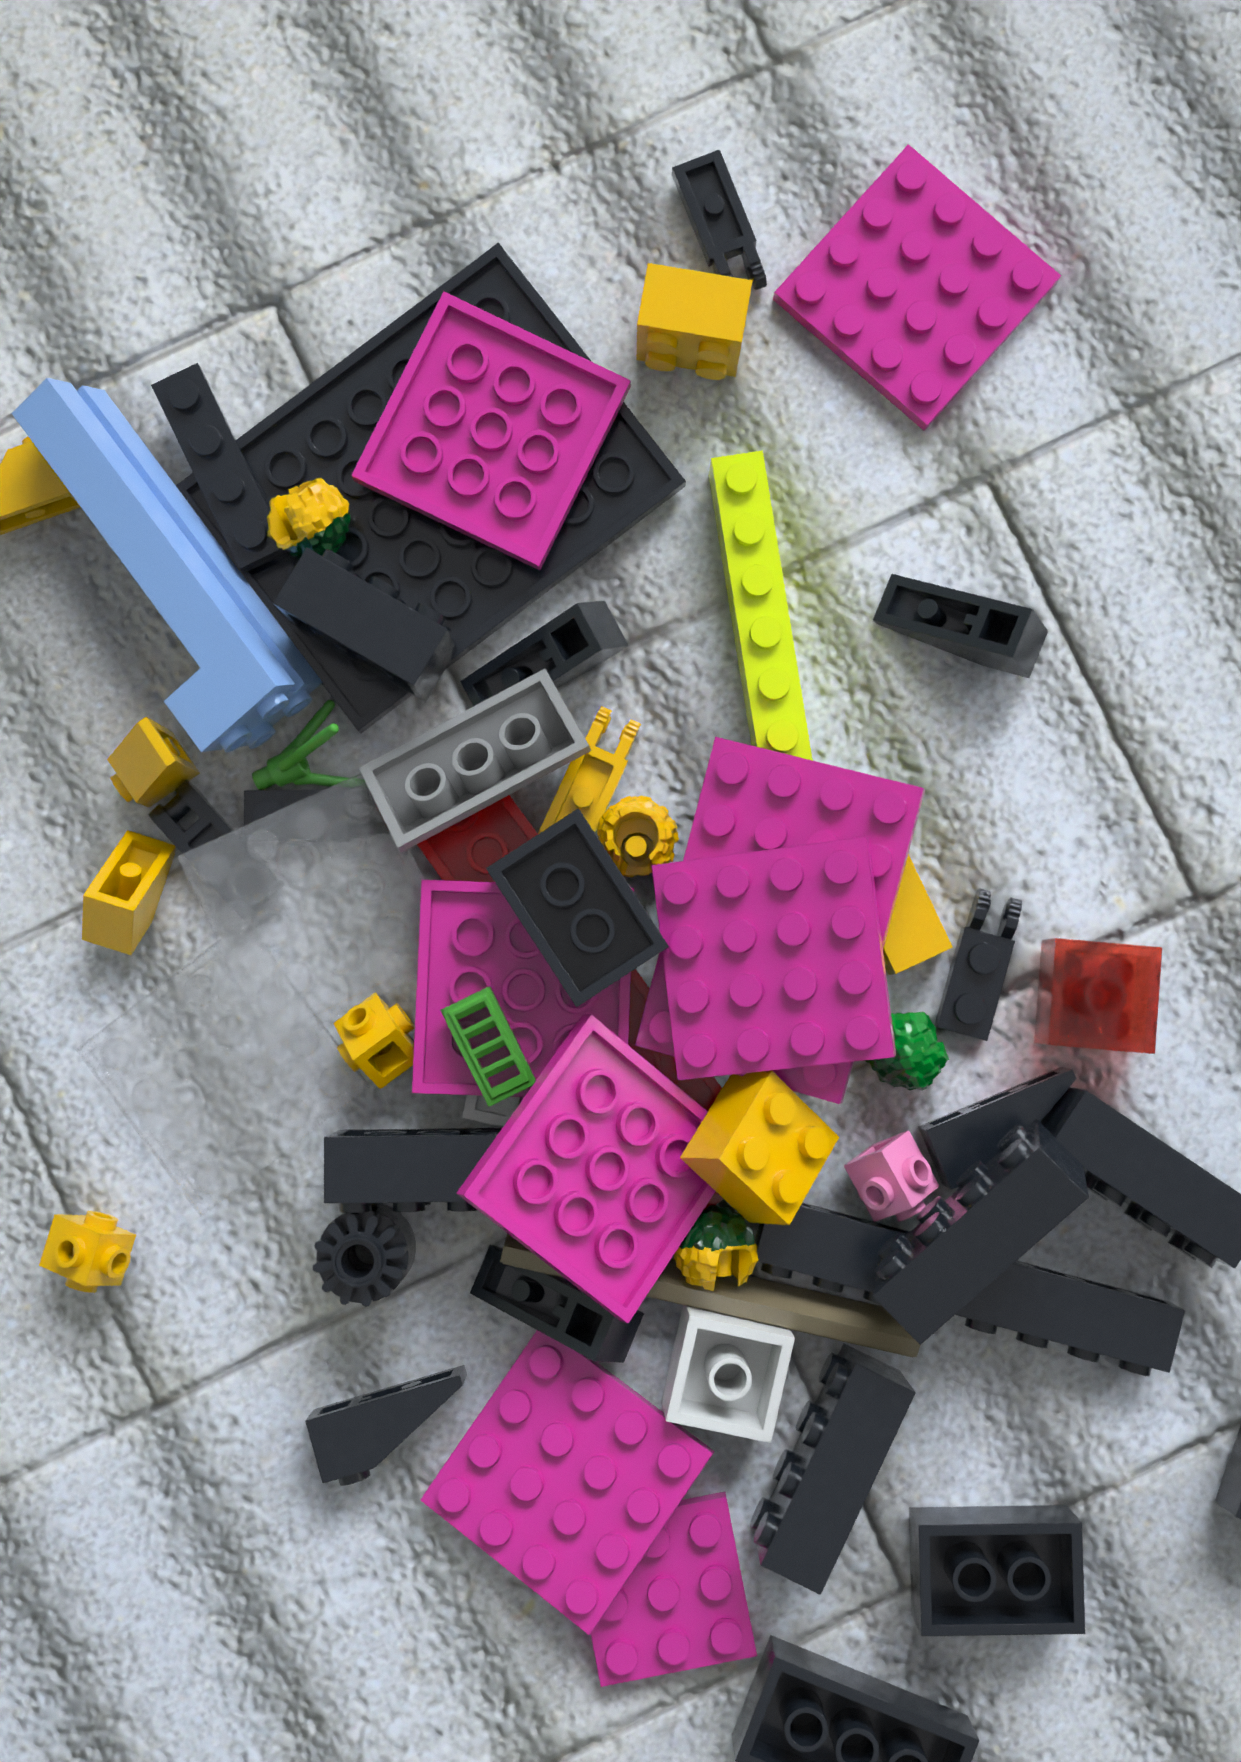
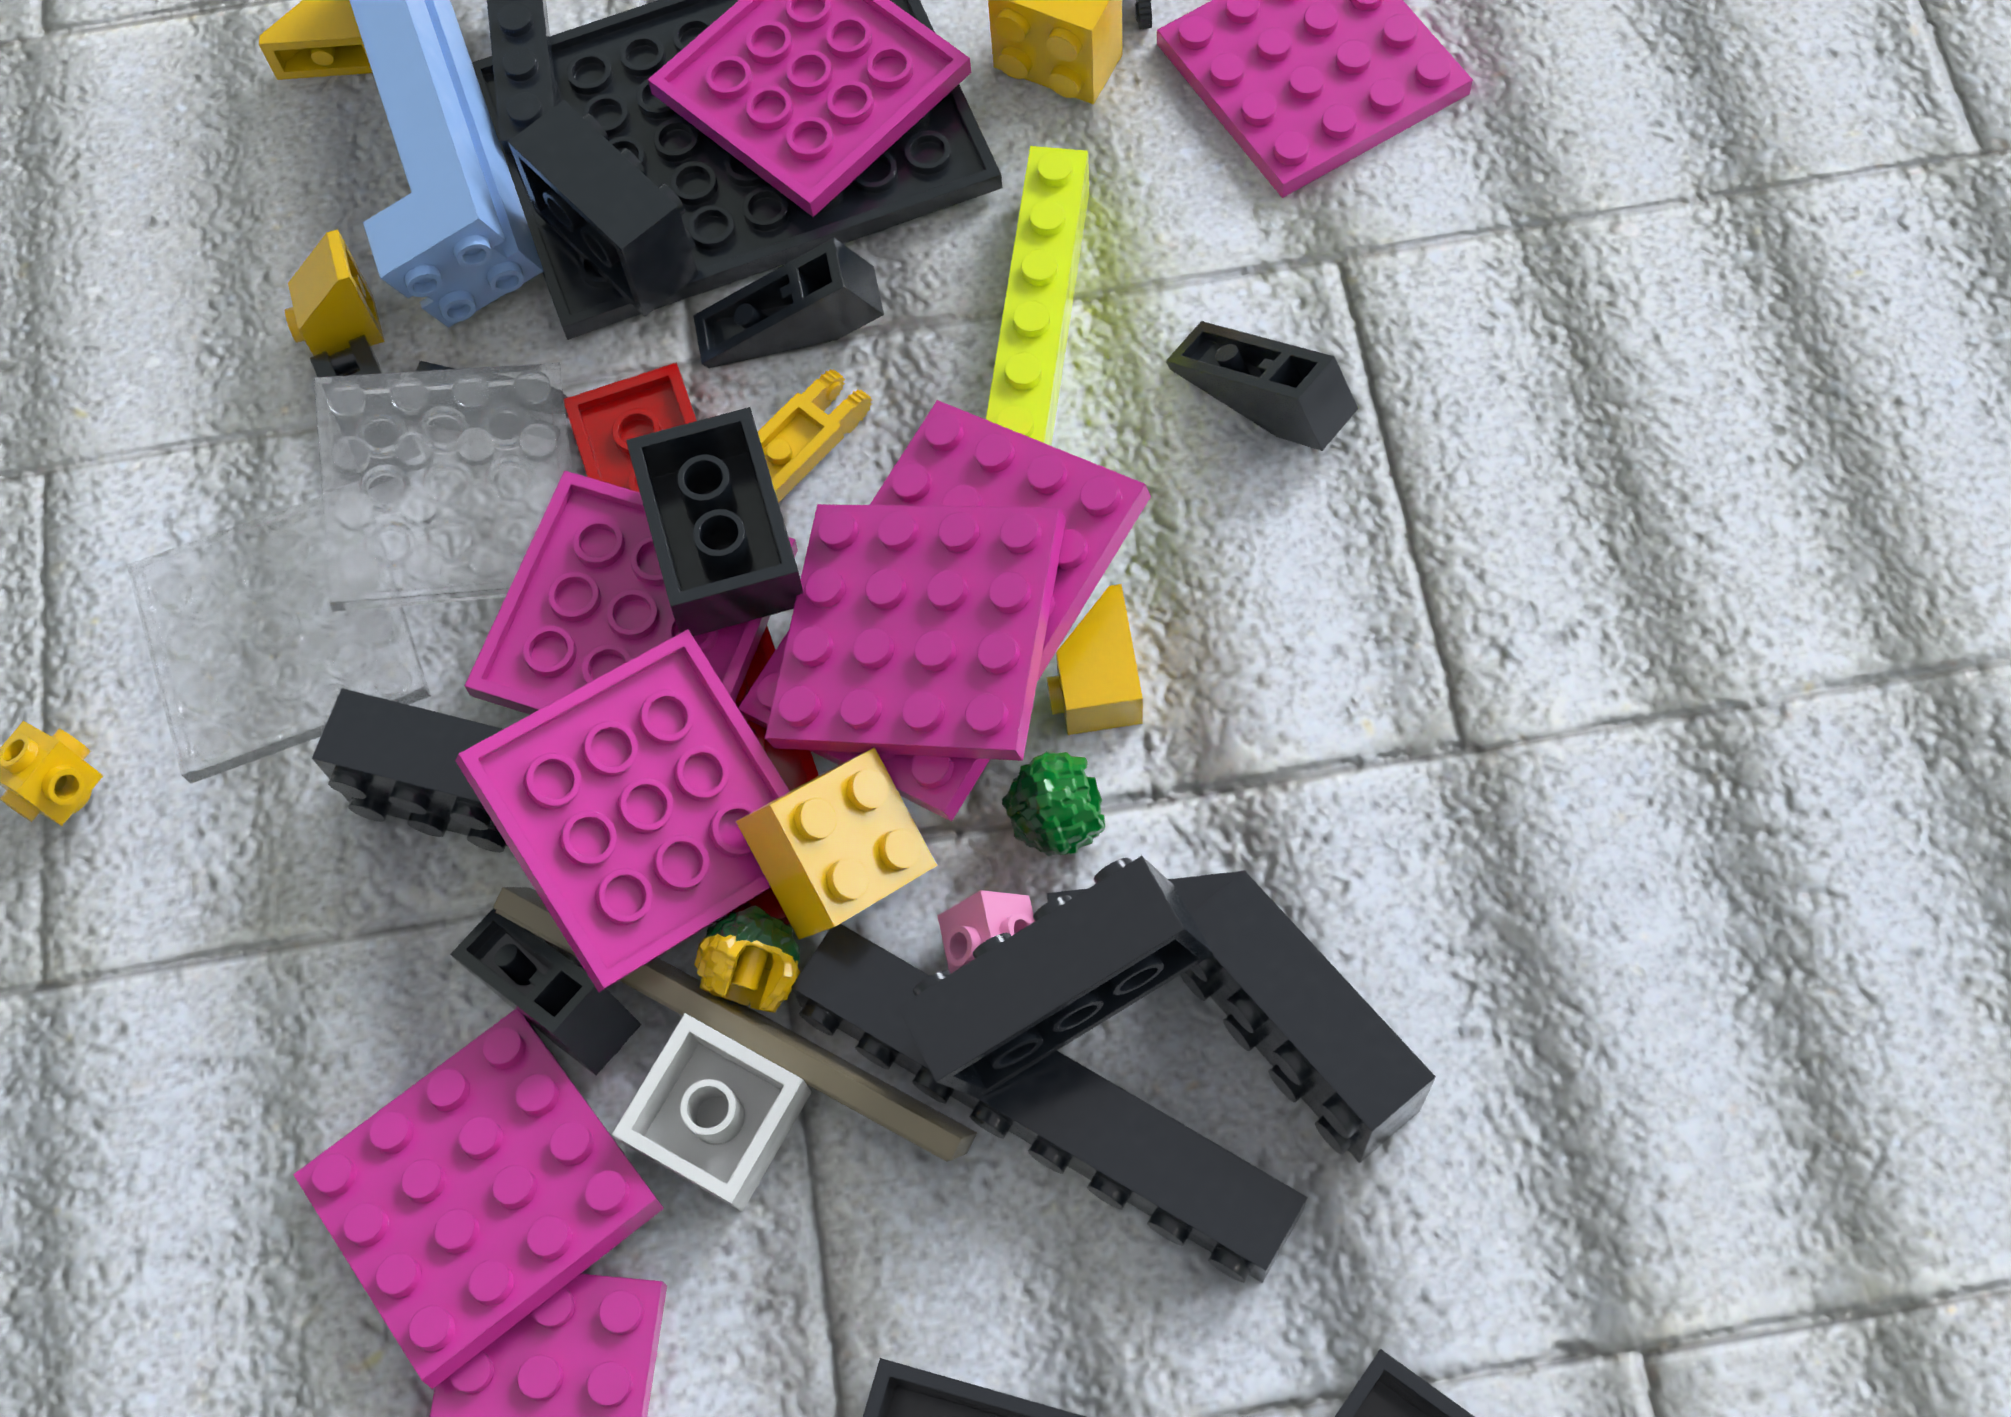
camera: 20 degrees right, 20 degrees down
(126, 892) = (249, 426): yellow slope -> none
(292, 762) = (481, 345): bright green plant -> none
(309, 518) = (593, 91): yellow piece -> none
(365, 1429) = (276, 1067): black slope -> none
(376, 1040) = (446, 652): yellow brick -> none
(388, 1239) = (345, 859): black gear -> none
(469, 1005) = (556, 609): bright green slope -> none
(474, 760) = (667, 369): light grey slope -> none
(637, 835) = (812, 481): yellow piece -> none
(830, 1467) = (797, 1259): black brick -> none
(978, 970) = (1173, 752): black hinge -> none
(1098, 995) = (1302, 800): clear red brick -> none

